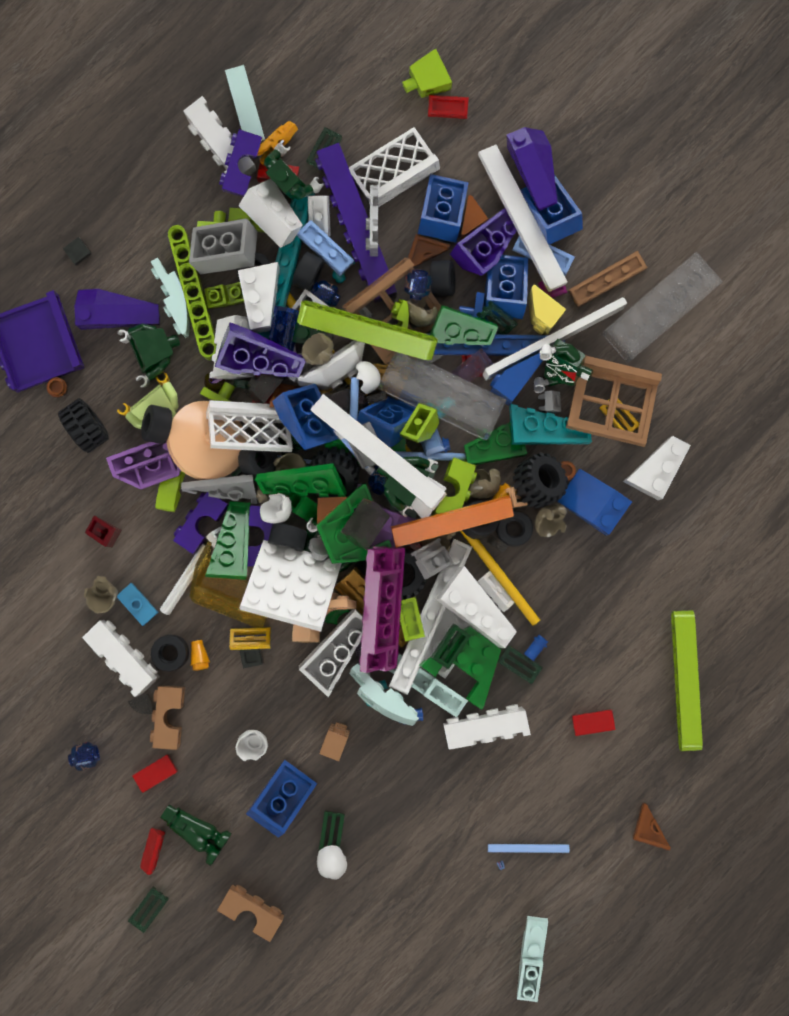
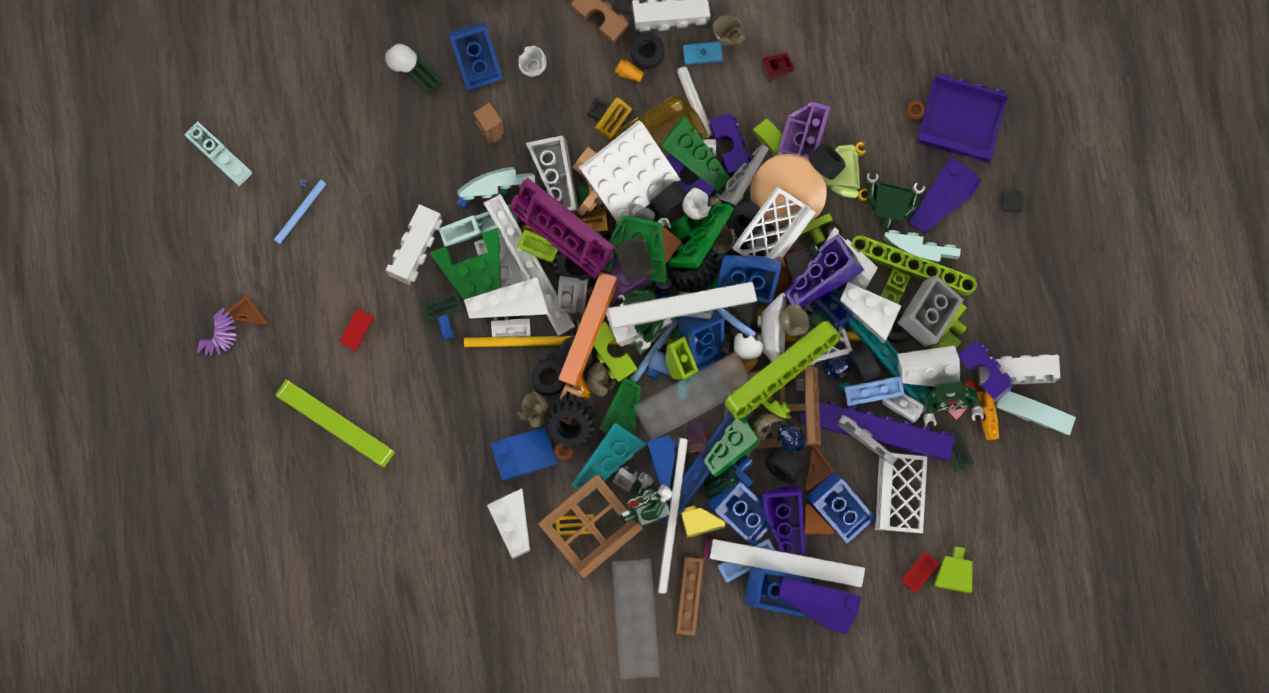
camera: 120 degrees right, 5 degrees down
(83, 425) = (868, 107): black tyre -> none
(444, 642) = (502, 259): dark green tile -> none
(683, 835) = (221, 334): none -> medium lavender hair

